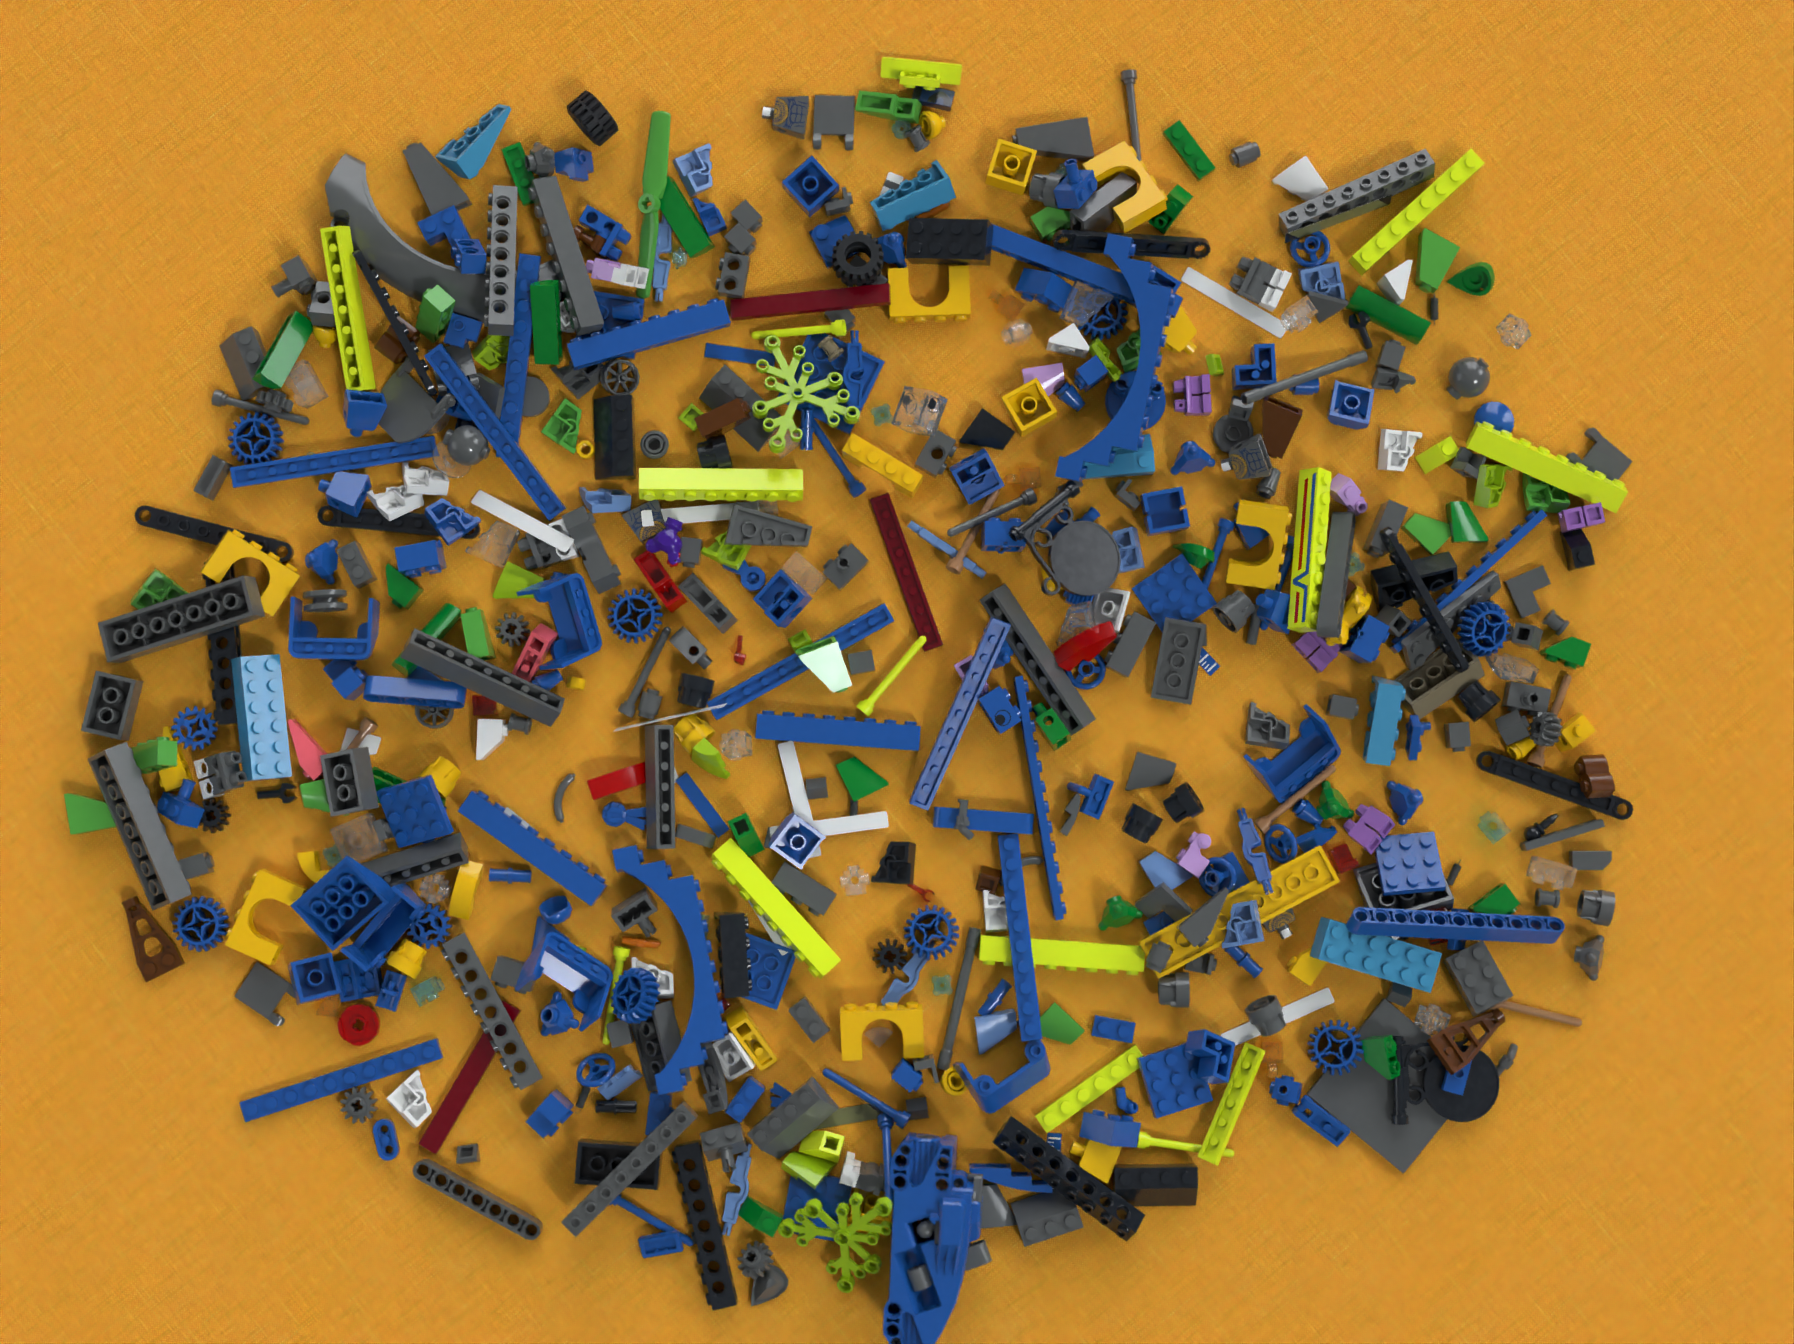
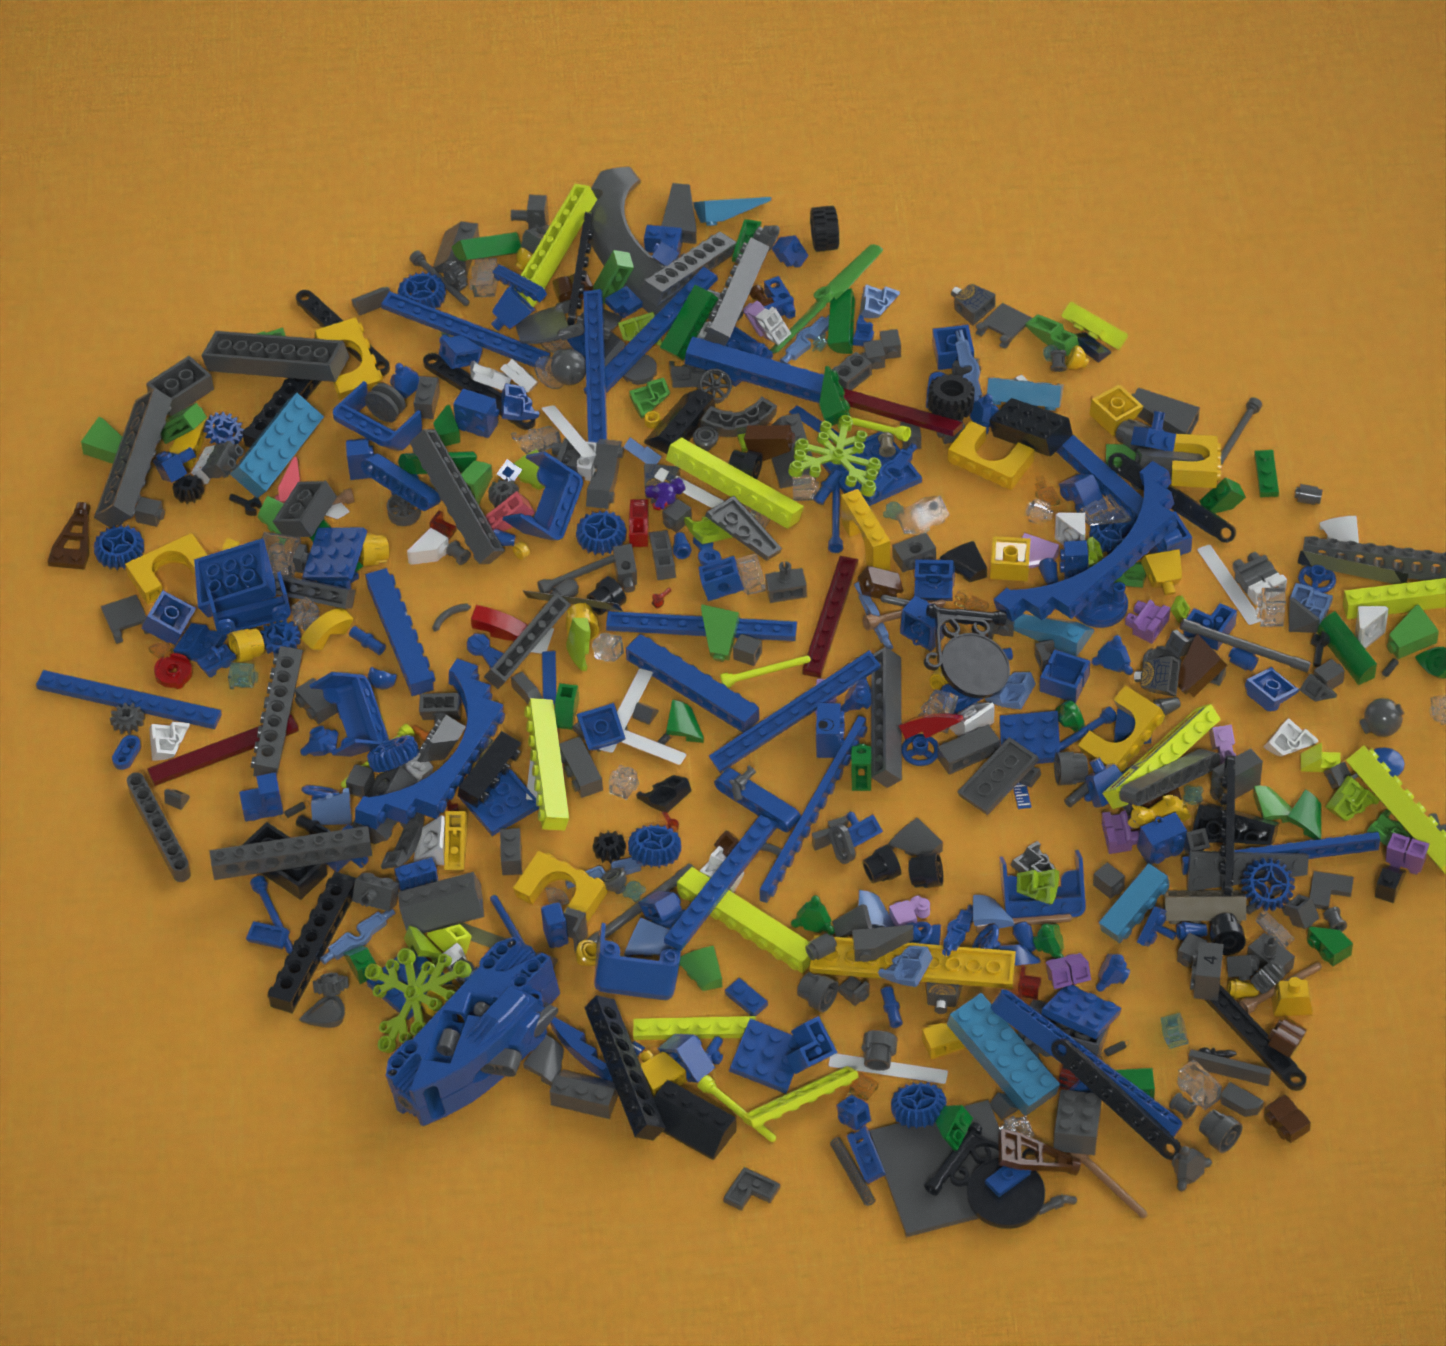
camera: 40 degrees right, 35 degrees down
(349, 380) = (519, 283): none -> blue piece
(498, 601) = (509, 471): none -> slope
(666, 952) = (440, 740): none -> dark grey slope
(673, 406) = (732, 424): none -> dark grey brick
(719, 583) = (681, 547): none -> blue cone
(745, 328) = (832, 399): none -> green slope
(840, 200) = (967, 360): none -> medium blue piece
(921, 991) = (615, 880): none -> dark grey brick
(934, 515) = (879, 582): none -> reddish brown brick
(982, 995) = (660, 905): none -> blue brick
(1092, 823) = (842, 843): none -> dark grey plate
(1241, 1211) = (749, 1184): none -> dark grey tile
(1266, 812) = (989, 911): none -> medium blue slope
(1292, 758) = (1039, 885): none -> lime slope
(1331, 1152) = (849, 1174): none -> dark grey piece
(1442, 714) = (1194, 928): none -> blue cone
(1496, 761) = (1206, 971): none -> dark grey brick
(1500, 941) = (1116, 1098): none -> black plate
(1639, 854) = (1287, 1119): none -> reddish brown brick

